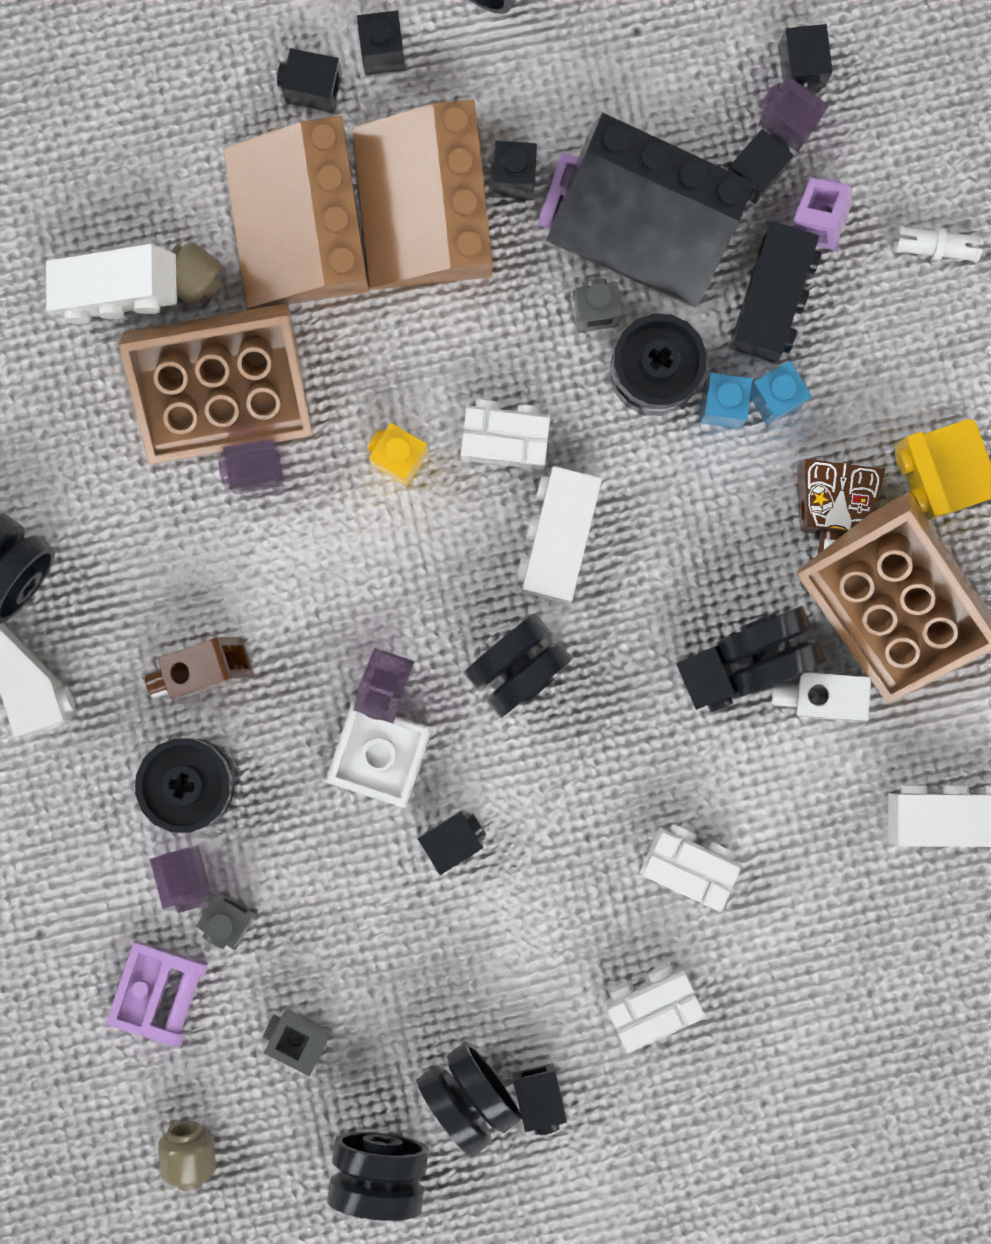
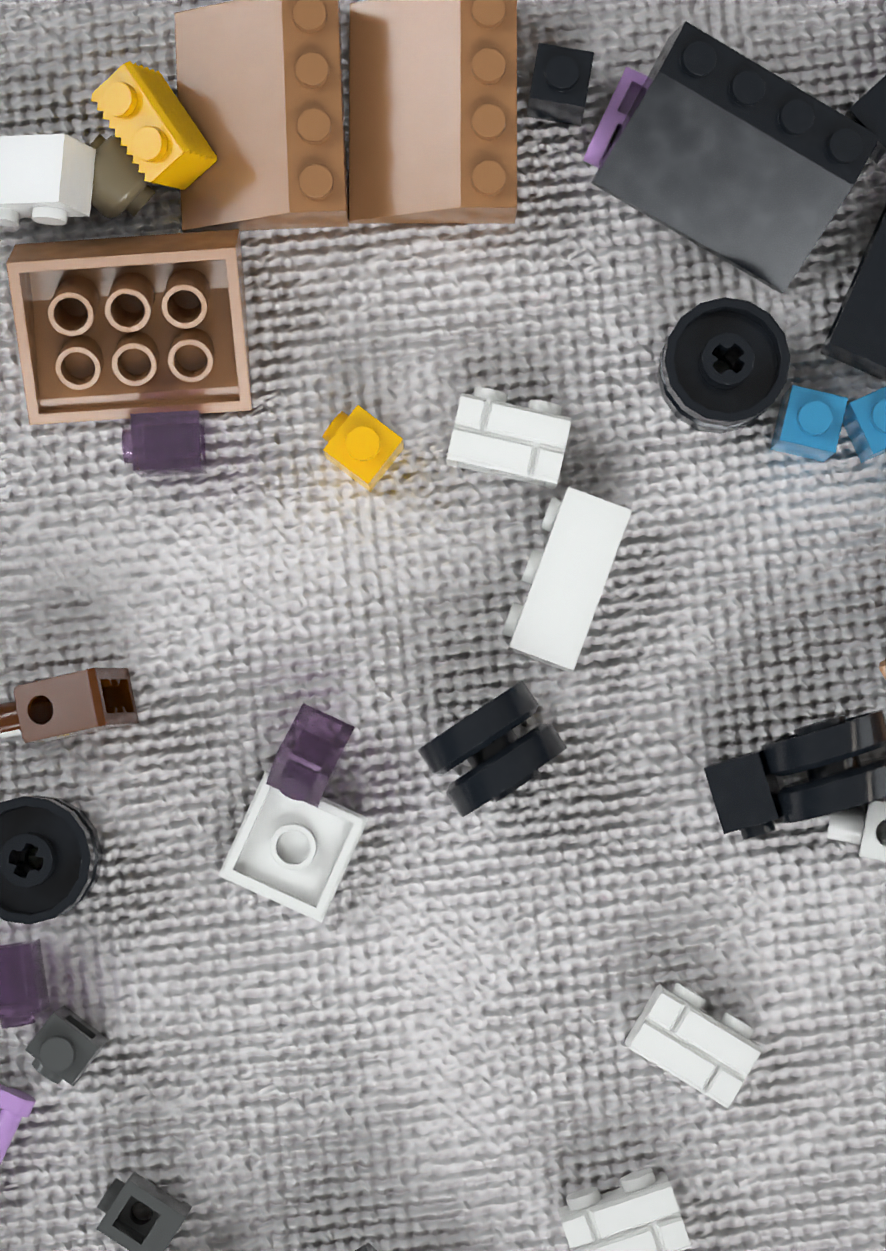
camera: 10 degrees right, 0 degrees up
(217, 233) = (153, 126): none -> yellow brick
(453, 841) = (379, 973): black brick -> none
(597, 305) = (651, 277): dark grey brick -> none

